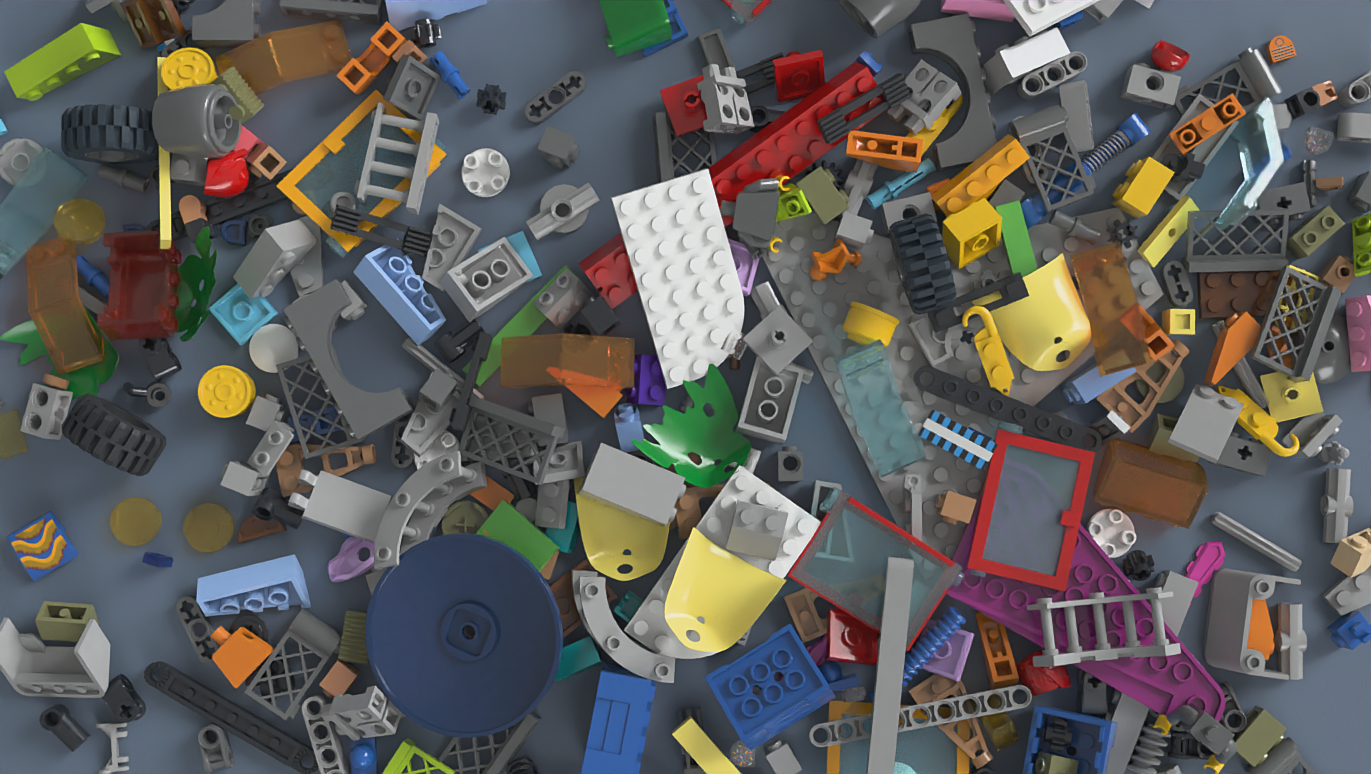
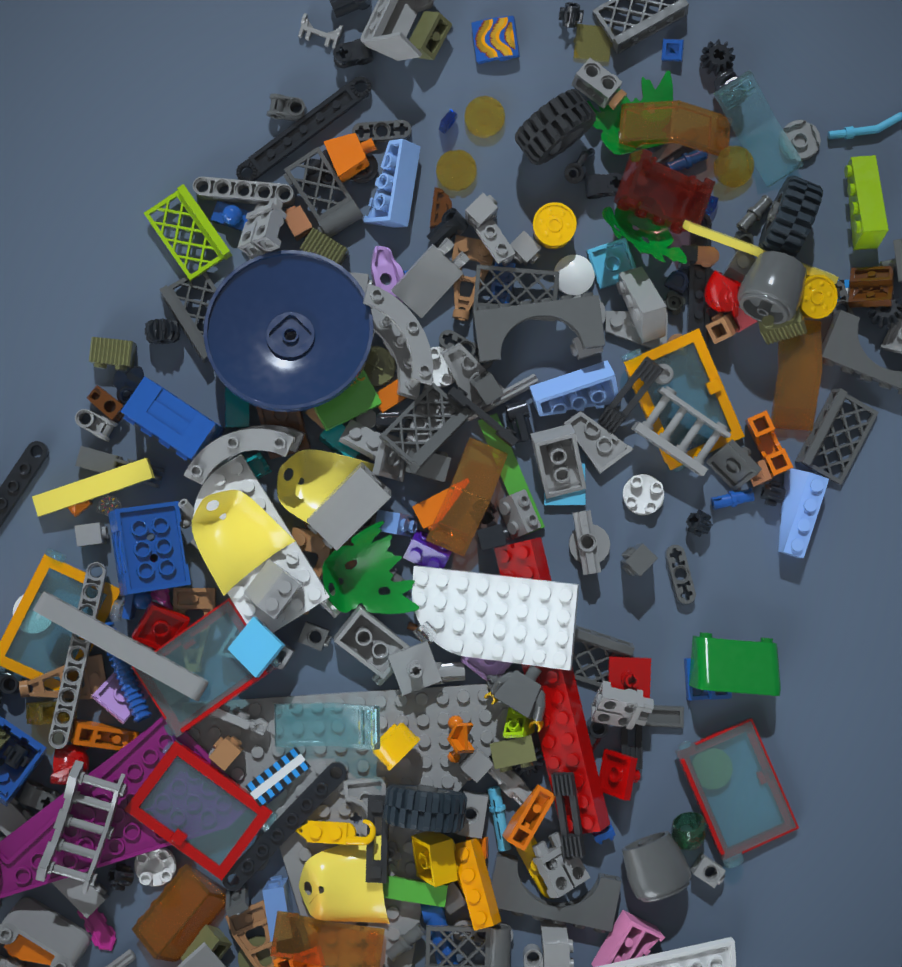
camera: 115 degrees right, 0 degrees up
(714, 661) = (187, 514): none -> light grey arm
(827, 521) = (256, 647): none -> medium azure tile

